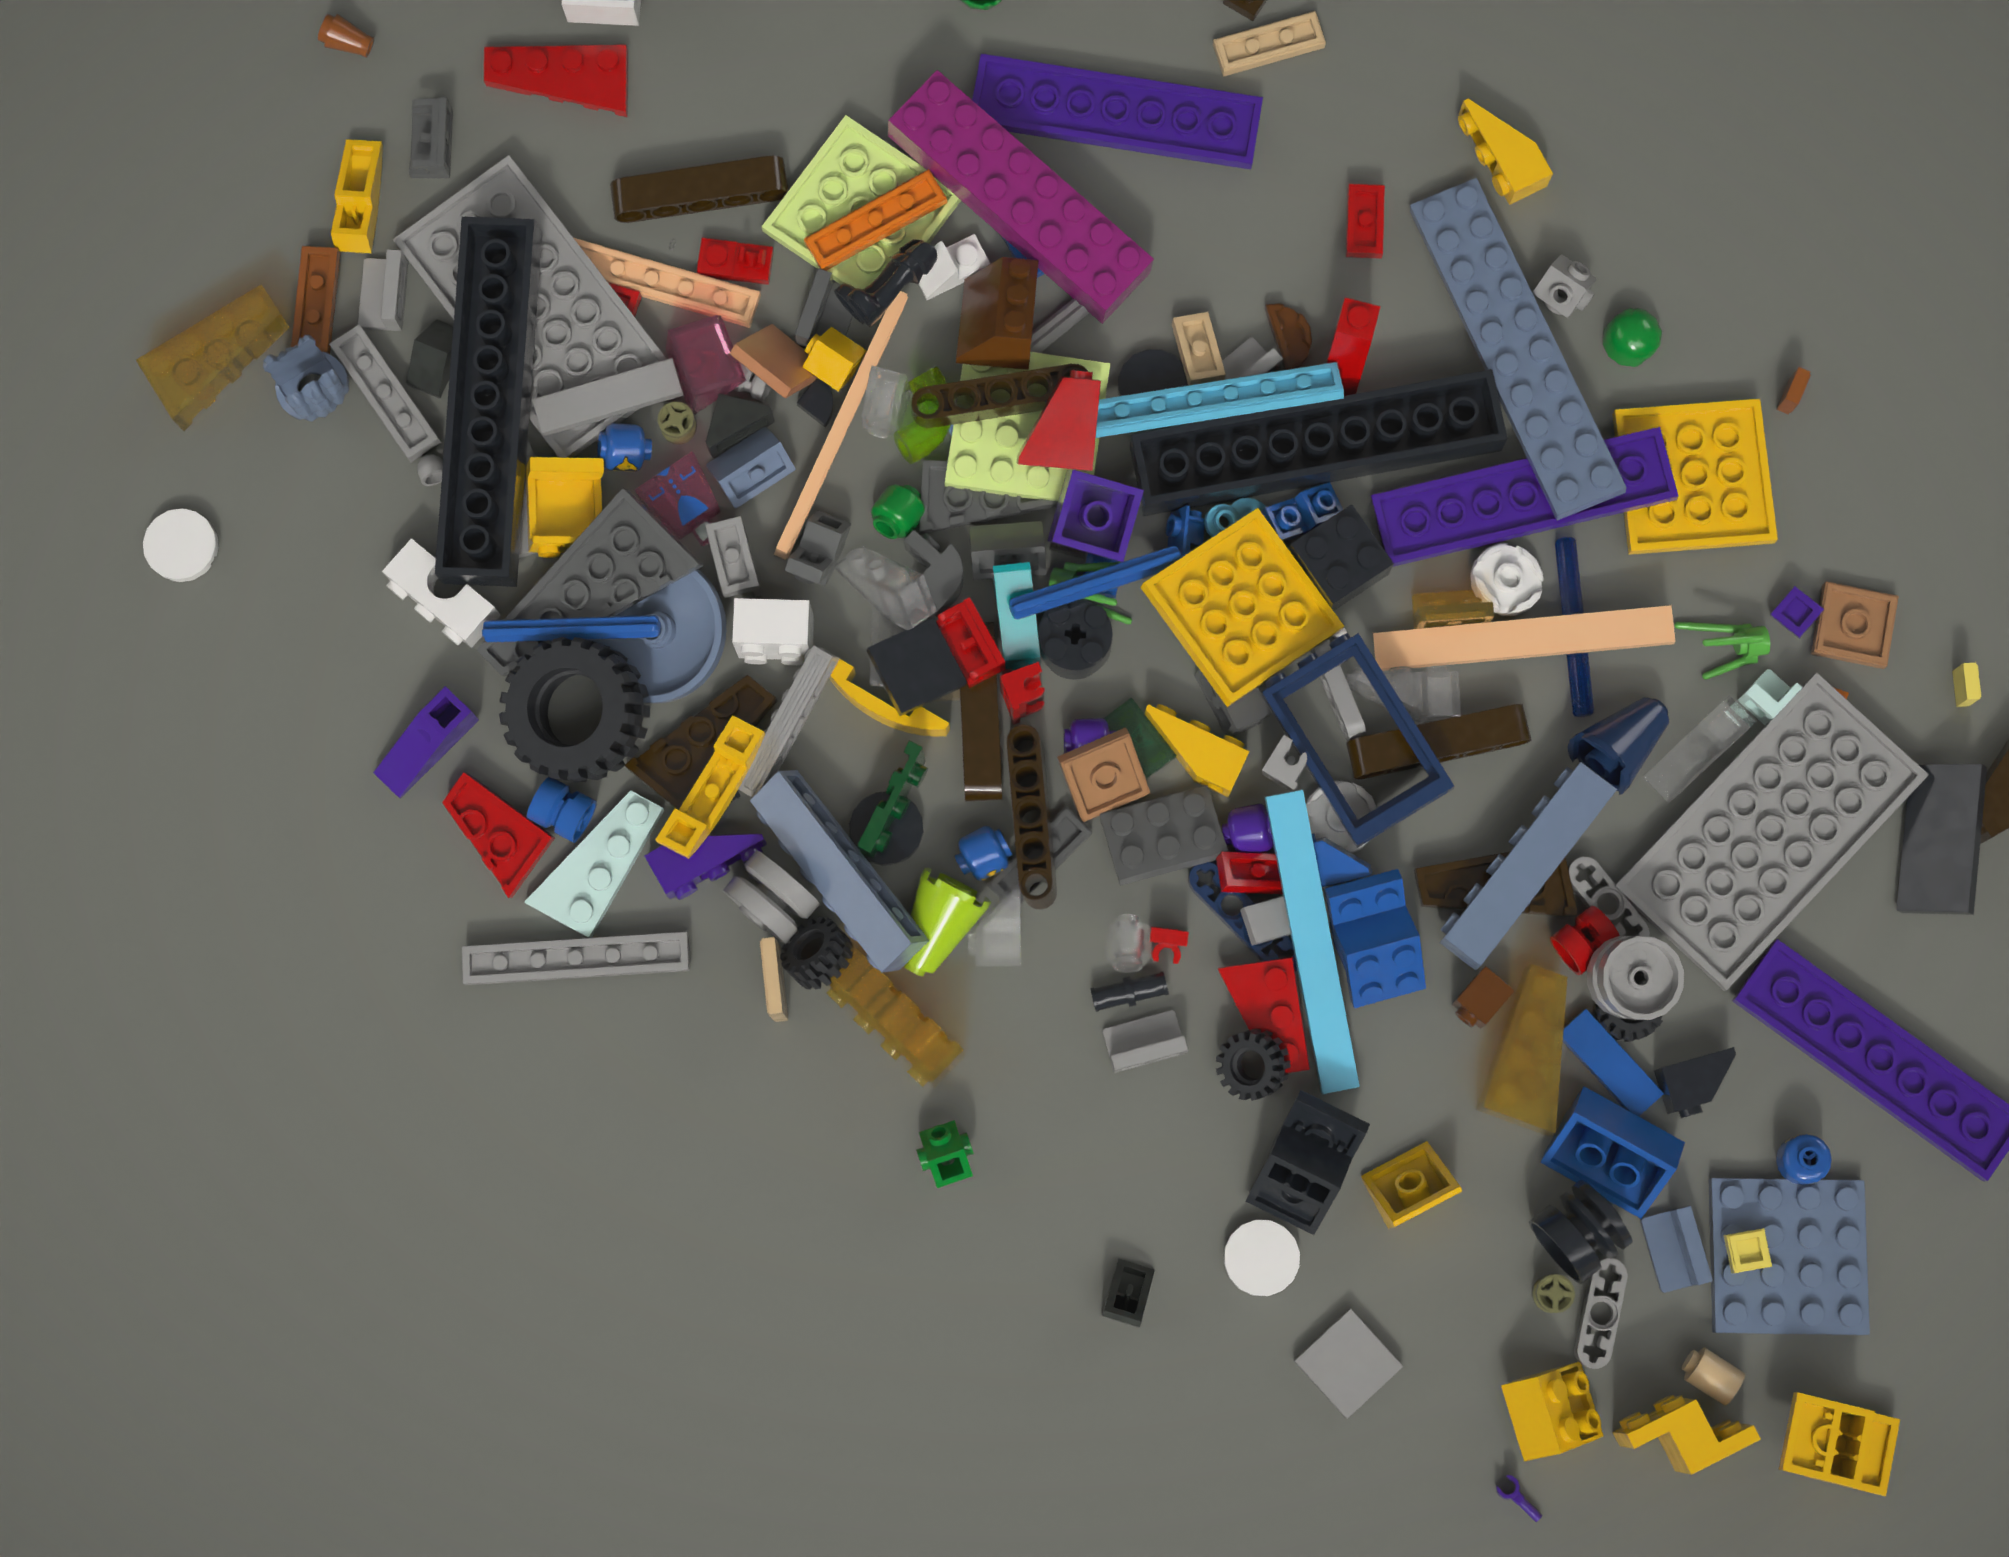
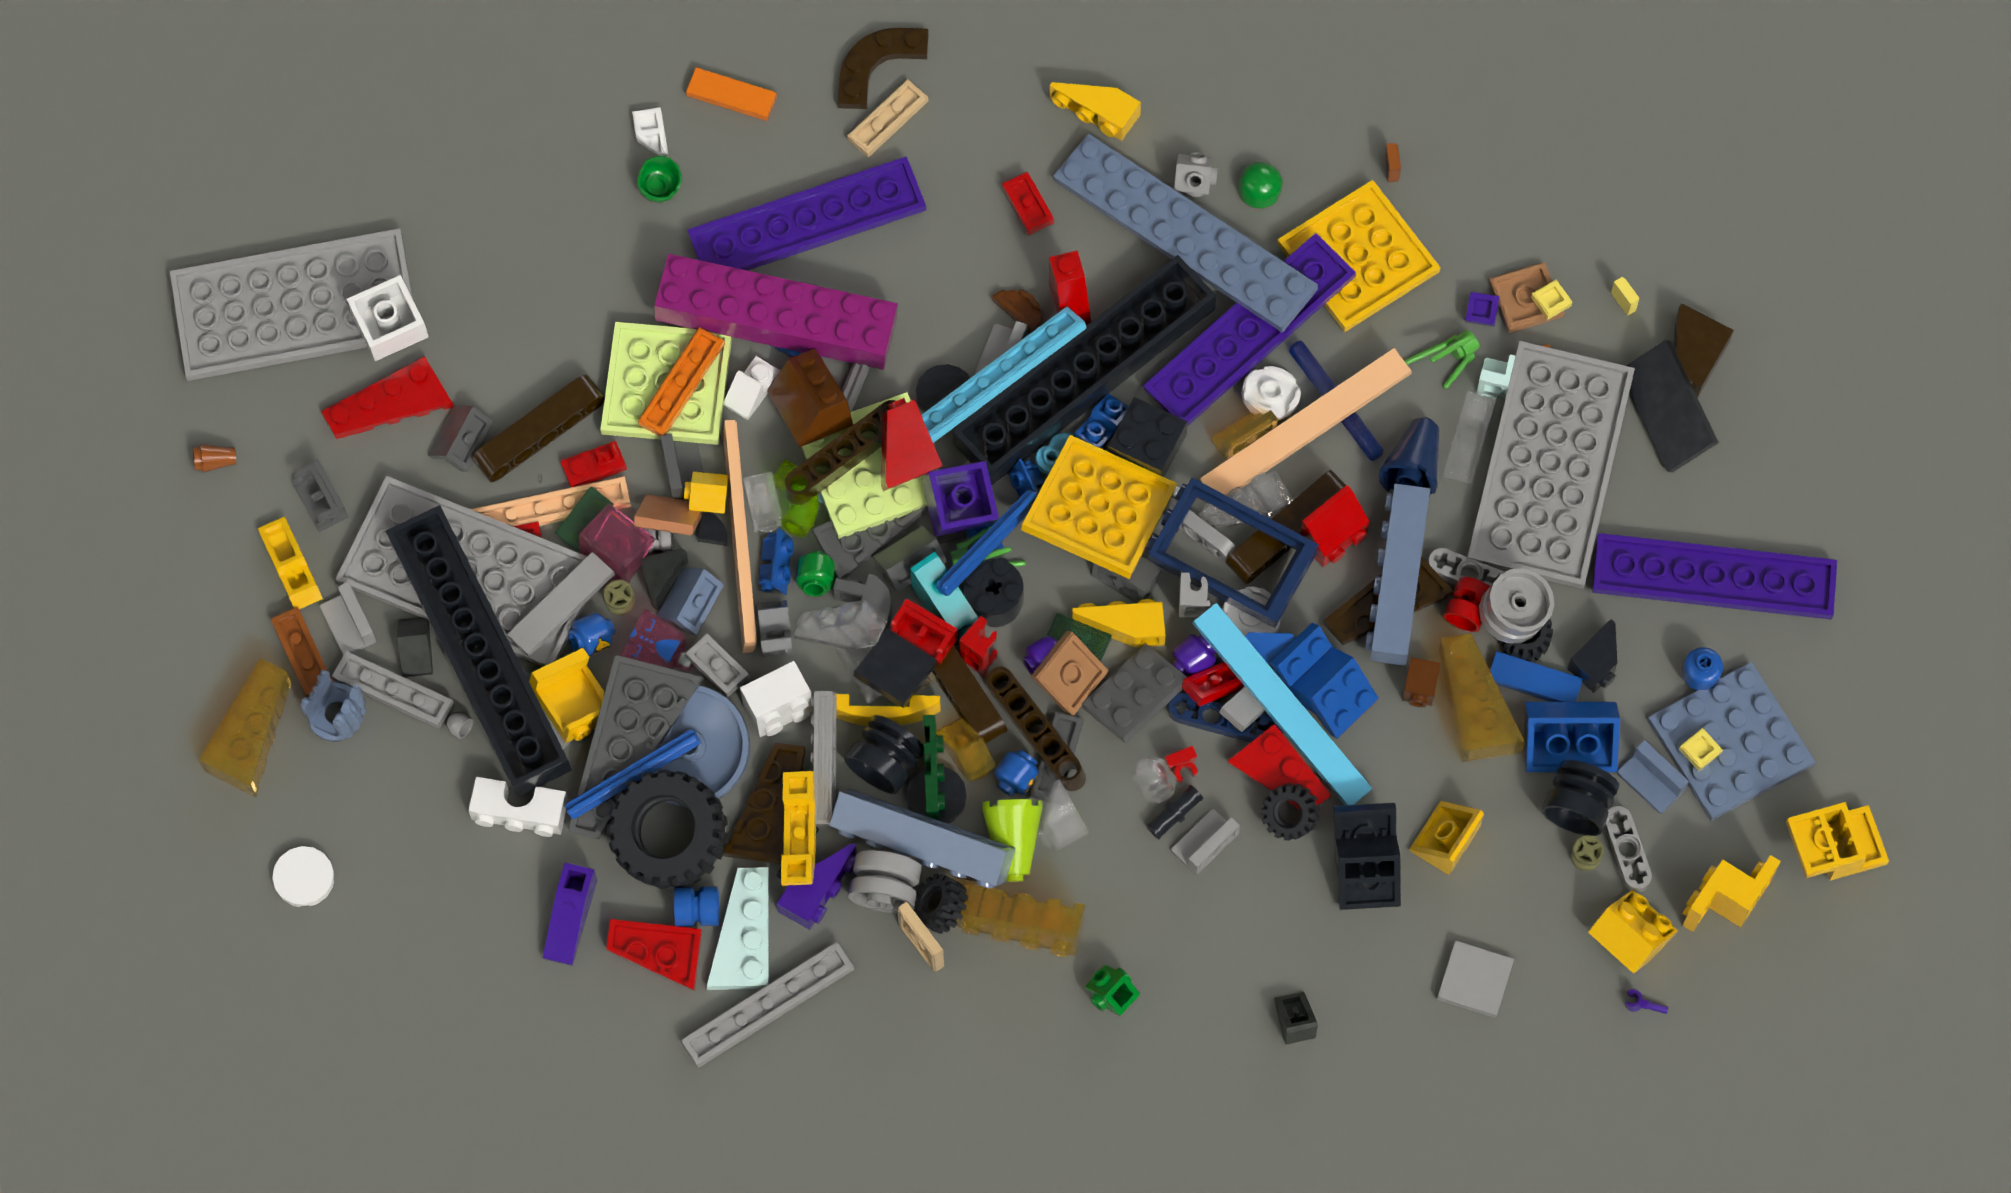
camera: 30 degrees left, 10 degrees down
(613, 154) = (461, 436): none -> dark grey panel
(690, 309) = (583, 513): none -> clear green tile
(852, 754) = (884, 754): none -> black wheel
(875, 463) = (778, 549): none -> blue hinge
(905, 266) = (722, 402): black piece -> none
(945, 796) = (967, 749): none -> clear yellow slope
(1198, 348) = (962, 350): tan plate -> none
(1261, 1257) = (1373, 941): white tile -> none
(1488, 772) = (1336, 526): none -> red slope
(1713, 1375) = (1726, 846): tan brick -> none
(1881, 644) = (1551, 299): none -> light yellow tile

